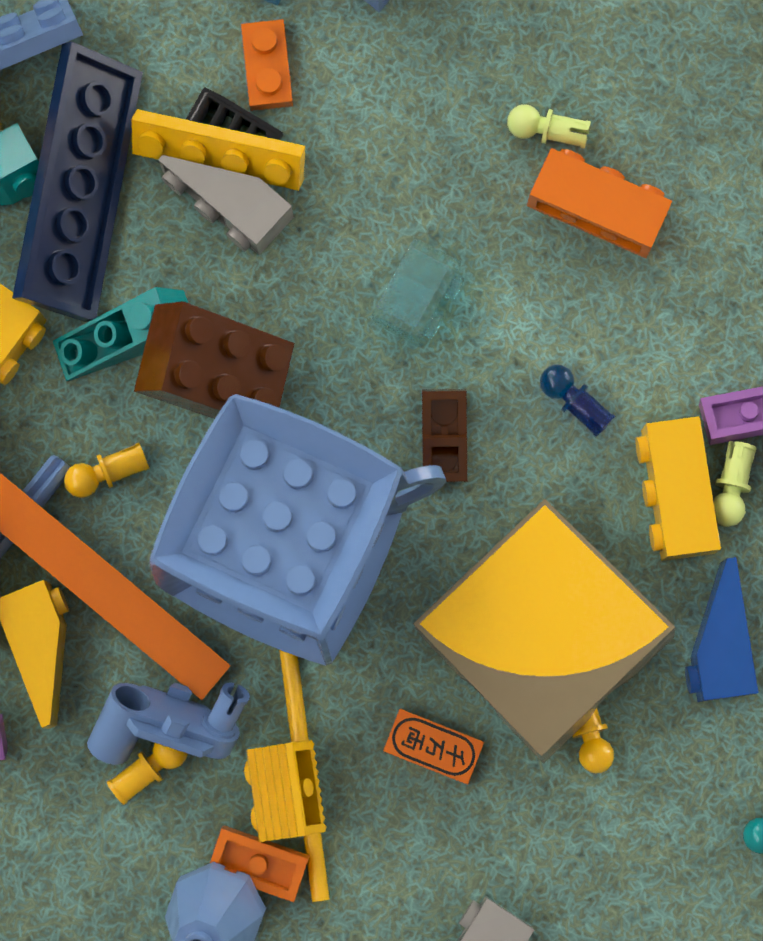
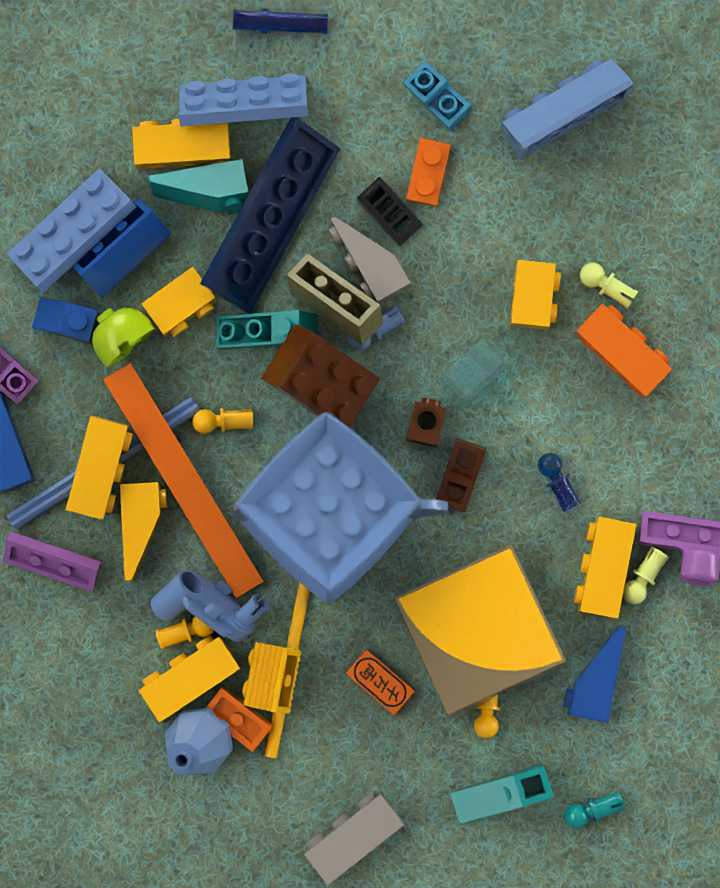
camera: 20 degrees right, 5 degrees up
(172, 830) = (188, 677): none -> yellow brick
(199, 259) = (334, 299): none -> olive brick
(251, 301) = (391, 319): none -> medium blue pin
(254, 155) = (373, 224): yellow plate -> none
(381, 400) = (426, 437): none -> reddish brown brick
(457, 170) = (534, 294): none -> yellow brick
(652, 840) = (502, 794): none -> teal slope

